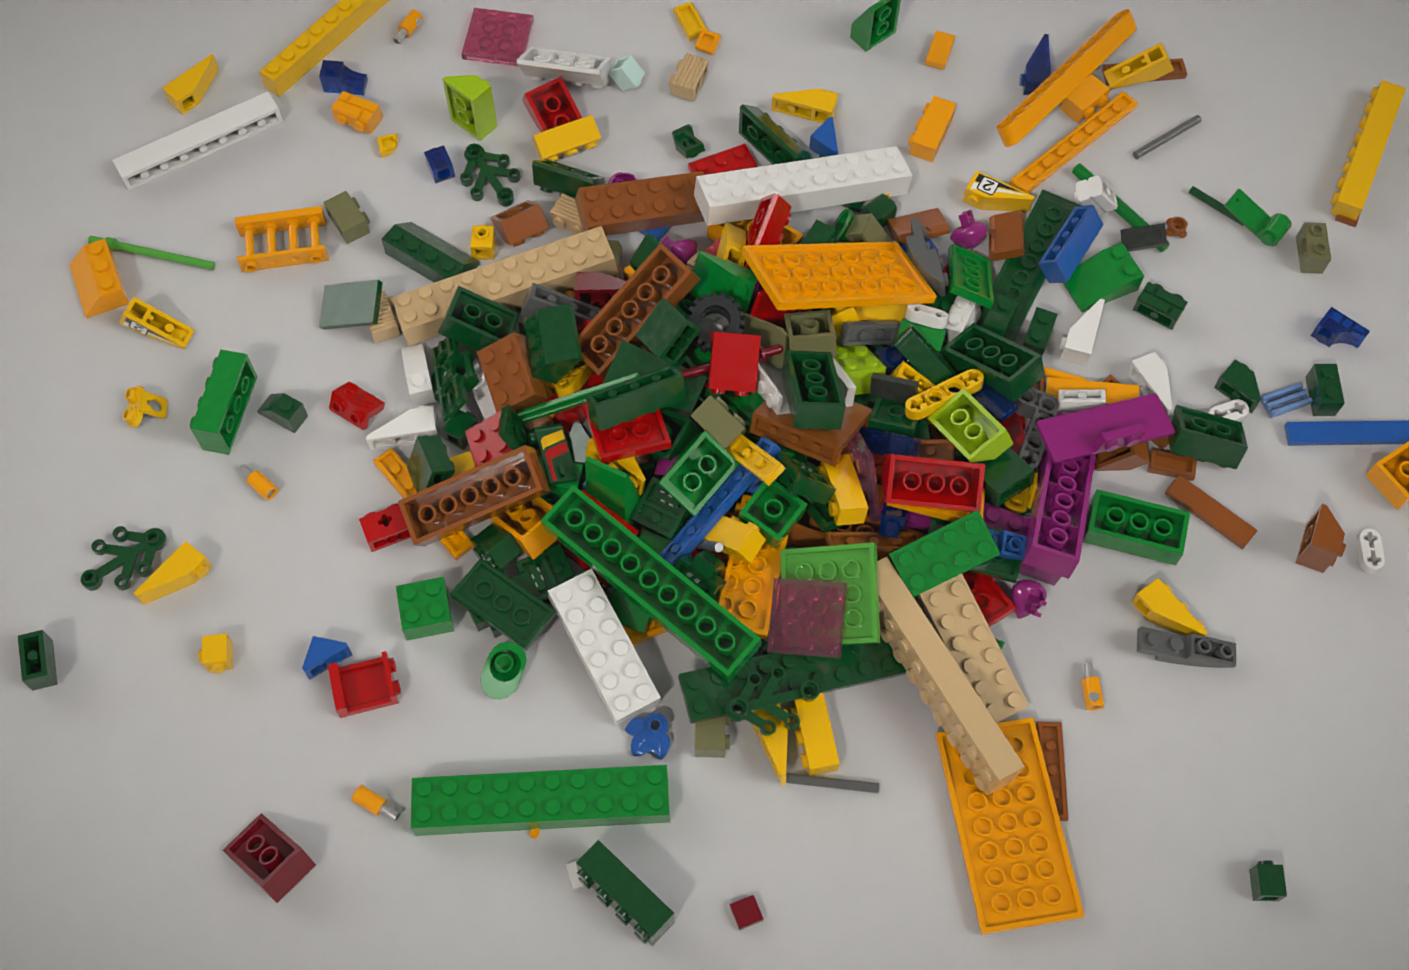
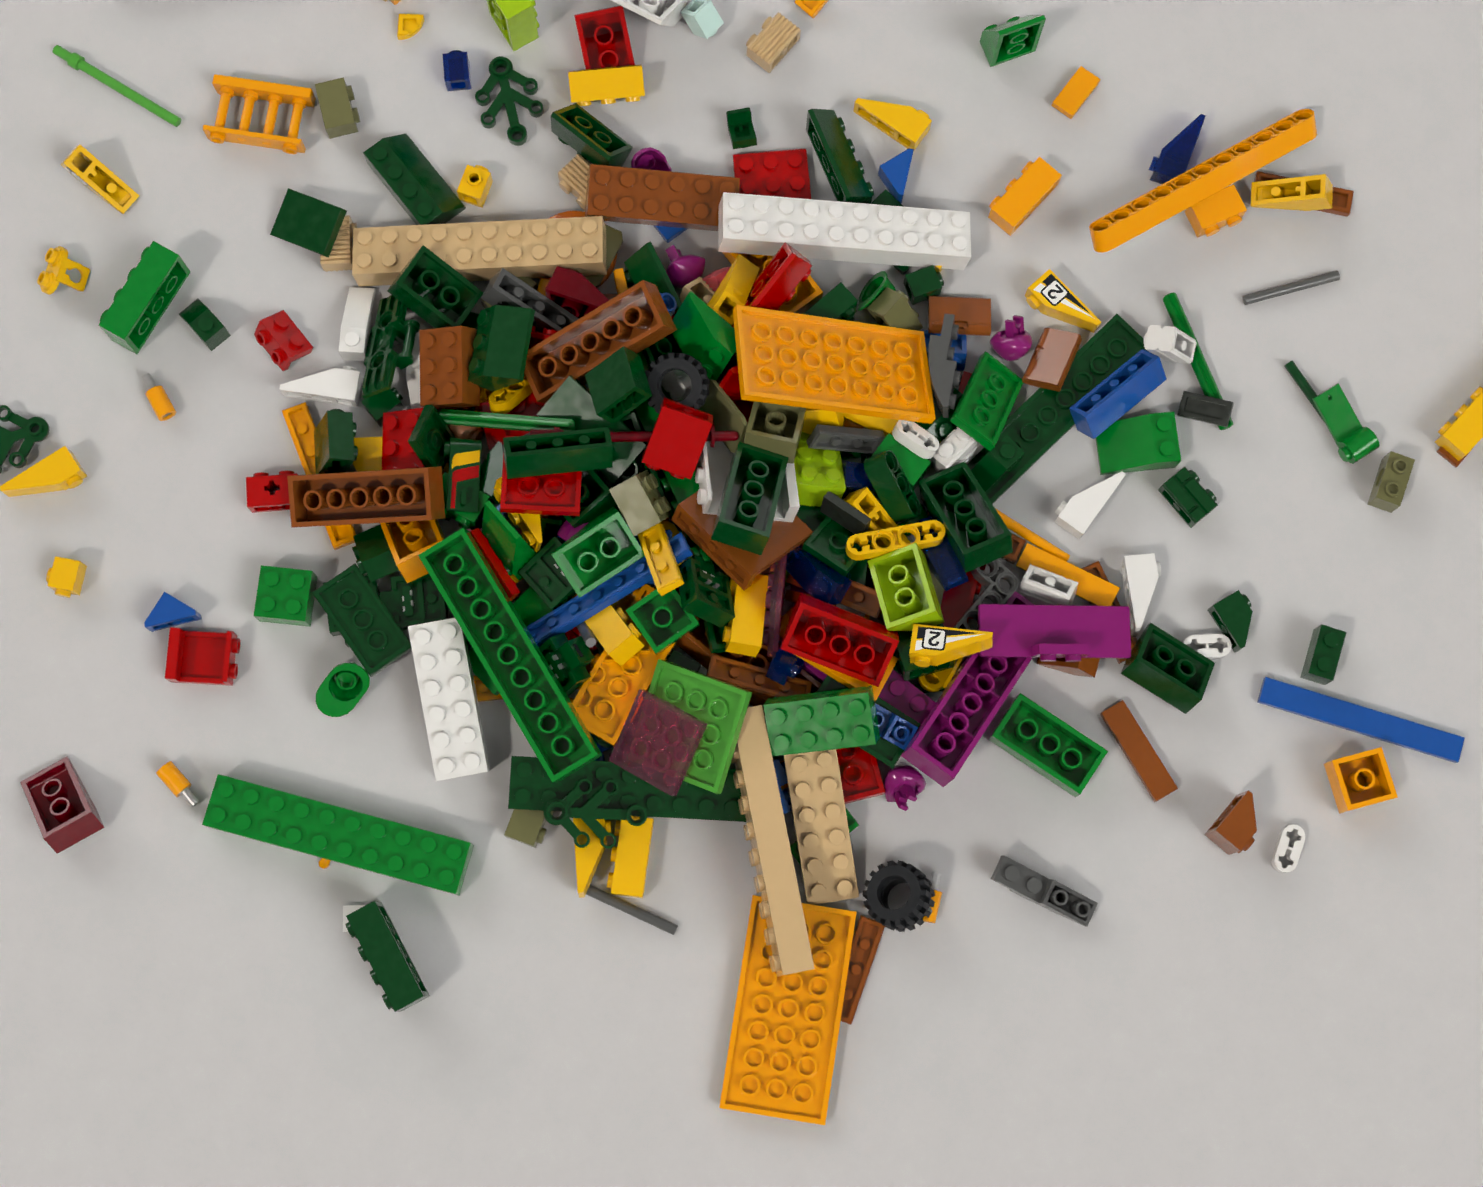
camera: 15 degrees right, 15 degrees up
(98, 279) = (52, 103): light orange slope -> none
(520, 223) = (522, 173): dark orange slope -> none
(646, 738) = (465, 805): blue plate -> none
(746, 912) = (501, 1010): dark red tile -> none
(1019, 460) = (943, 644): none -> yellow slope
(1039, 330) = (1037, 490): dark green brick -> none
(1060, 671) = (880, 887): none -> black tyre
(1074, 143) = (1180, 262): light orange tile -> none
(1162, 608) = (1038, 839): yellow slope -> none
(1171, 464) = (1112, 681): dark orange tile -> none
(1173, 224) = (1249, 399): dark orange plate -> none
(1267, 881) = (1020, 1151): dark green brick -> none
(1283, 392) = (1272, 641): medium blue tile -> none
(1339, 328) = (1372, 587): clear blue arch -> none

